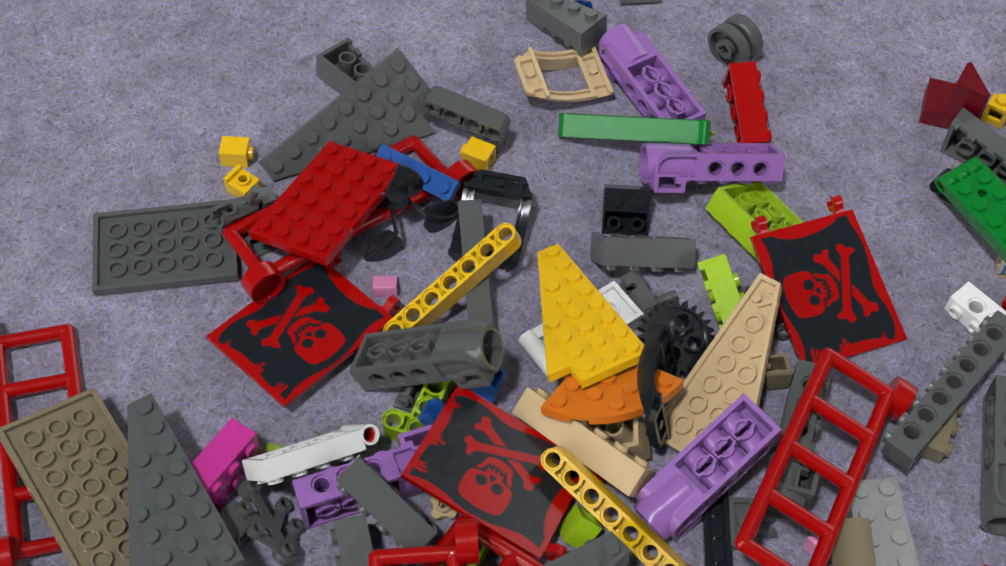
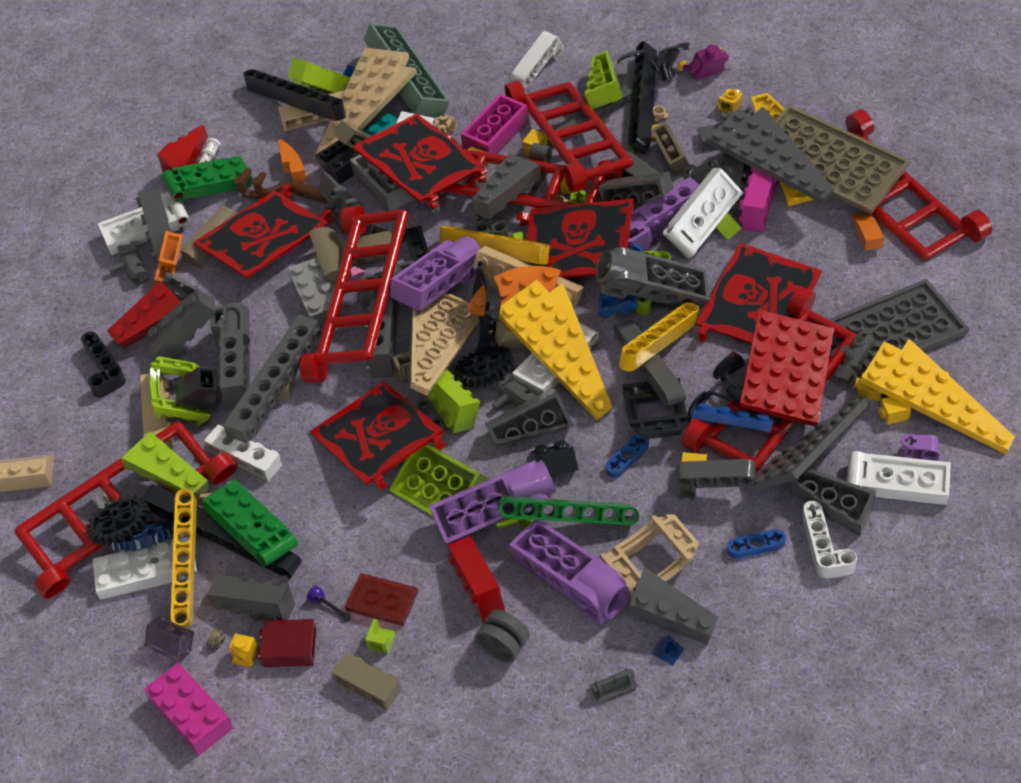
camera: 170 degrees right, 5 degrees down
(113, 376) = (867, 231): none -> orange slope
(190, 155) = (920, 383): none -> yellow wing
(237, 107) = (921, 447): none -> medium lavender piece
(279, 81) = (901, 477): none -> white hinge
(384, 286) = (716, 349): bright pink slope -> none
(390, 30) = (818, 538): none -> white beam
(446, 65) = (761, 537): none -> blue beam
(548, 187) = (624, 463): none -> blue beam
(847, 123) = (381, 599): none -> clear red plate
(855, 87) = (379, 638): none -> lime panel
(874, 52) = (367, 681): none -> dark tan brick
(915, 145) = (316, 595): none -> hinge
(968, 93) = (276, 615): dark red slope -> none

